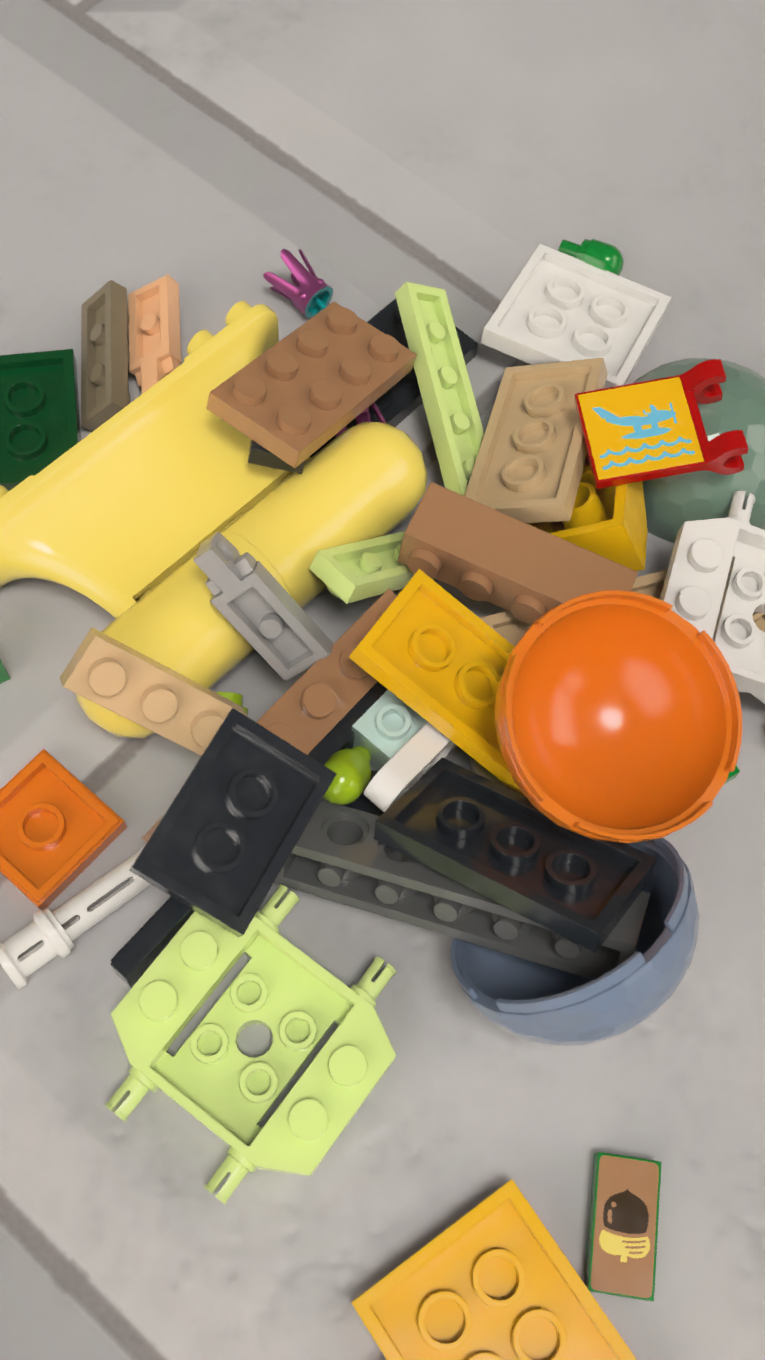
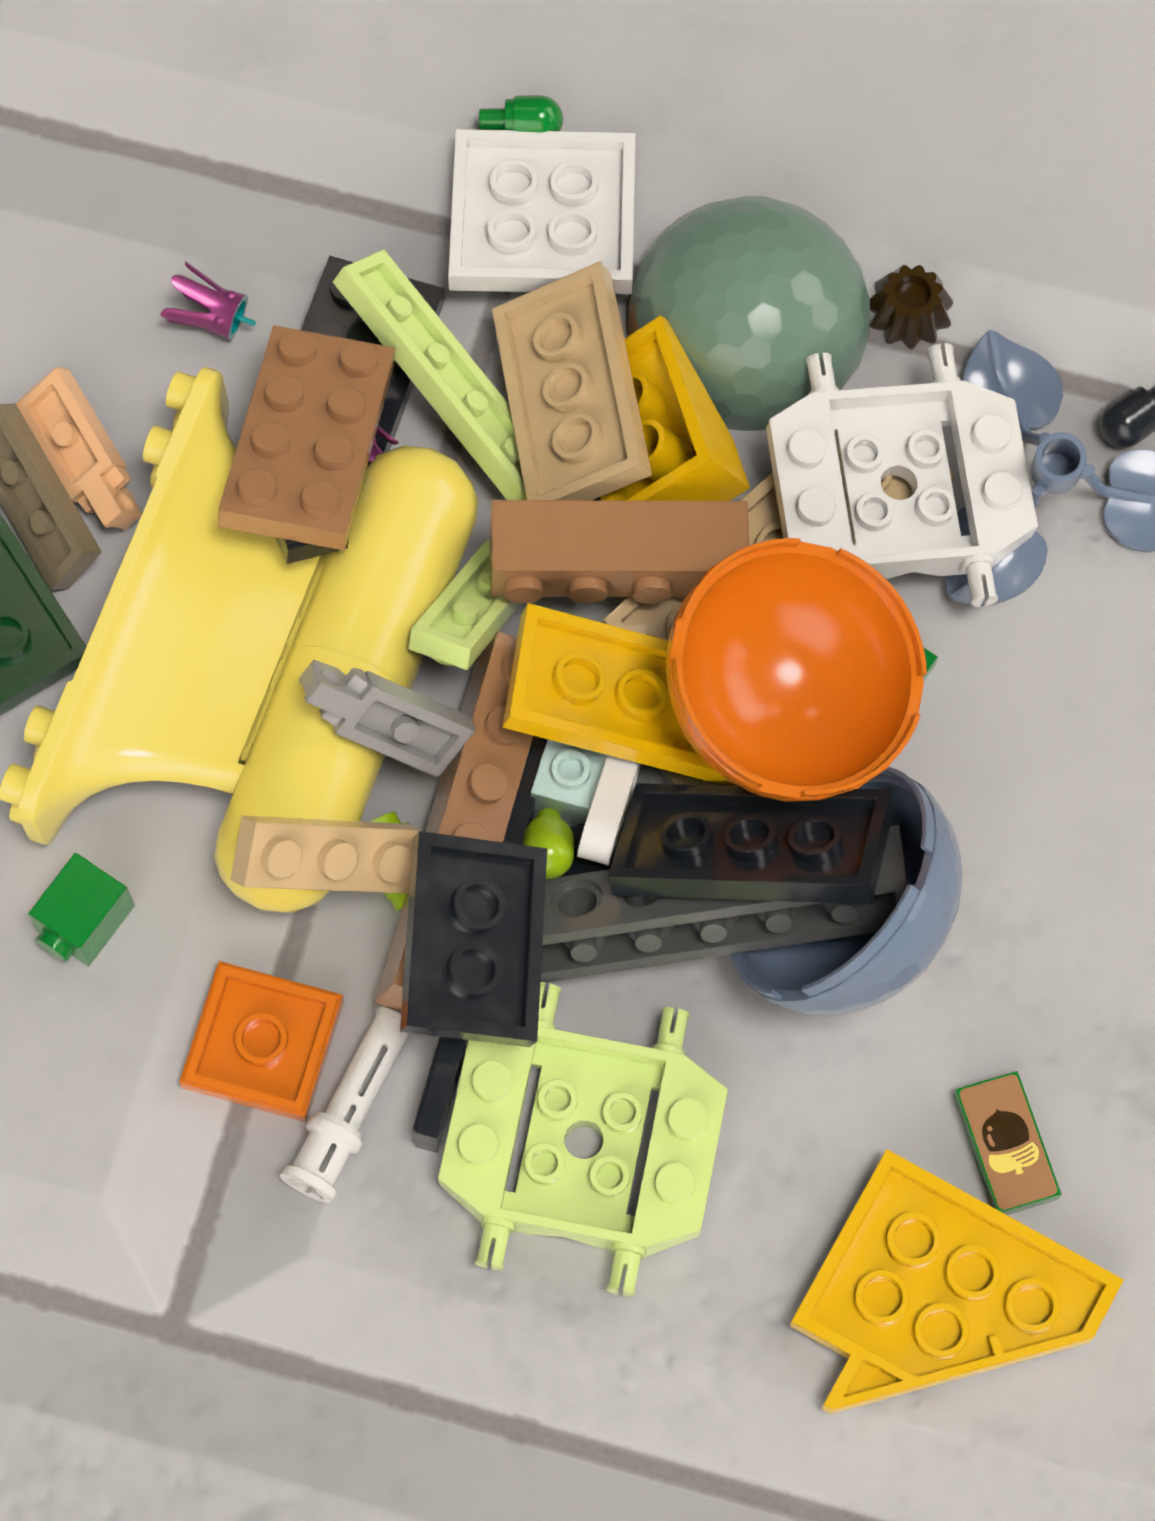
camera: 20 degrees left, 5 degrees up
(657, 428) = (694, 333): flag -> none

